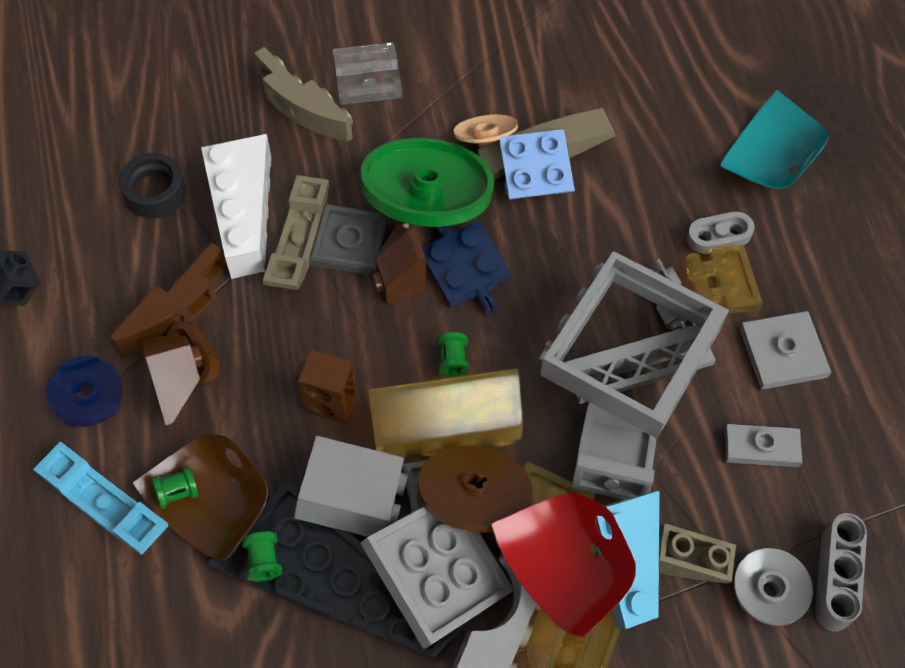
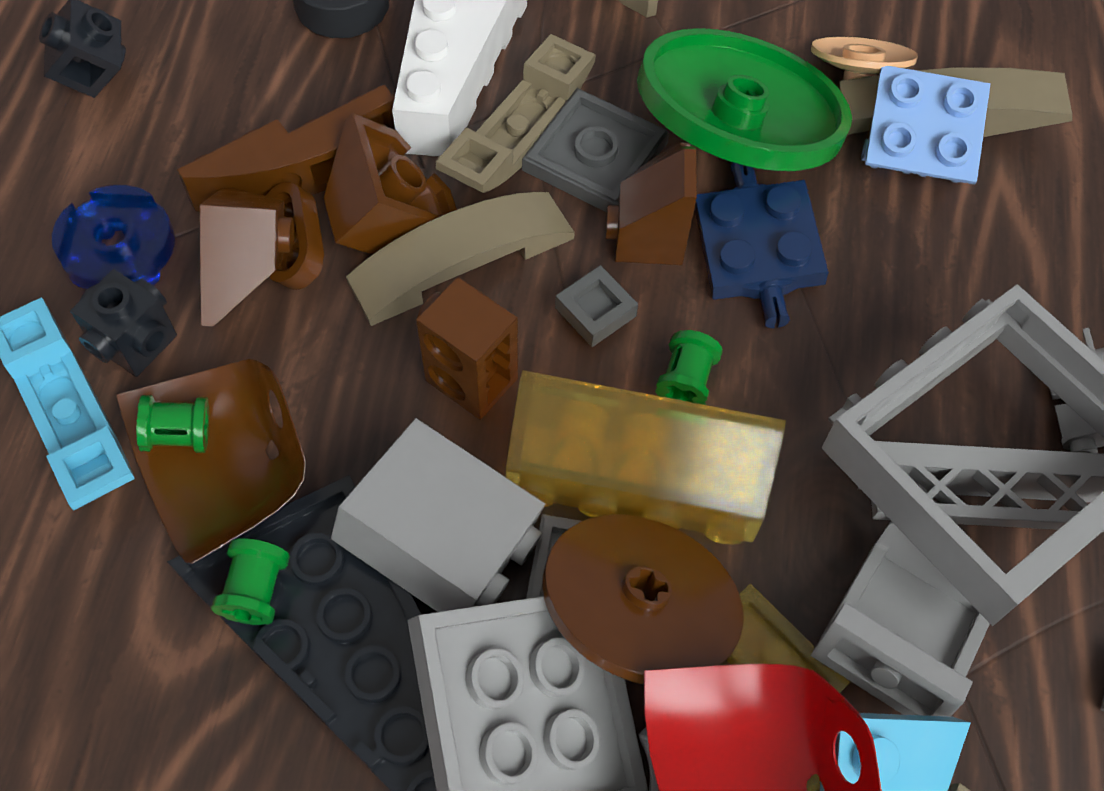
camera: 20 degrees right, 0 degrees up
(117, 438) = (124, 322): none -> black brick
(238, 312) = (378, 190): none -> reddish brown slope
(291, 327) = (453, 245): none -> dark tan slope
(387, 335) = (596, 306): none -> dark grey plate

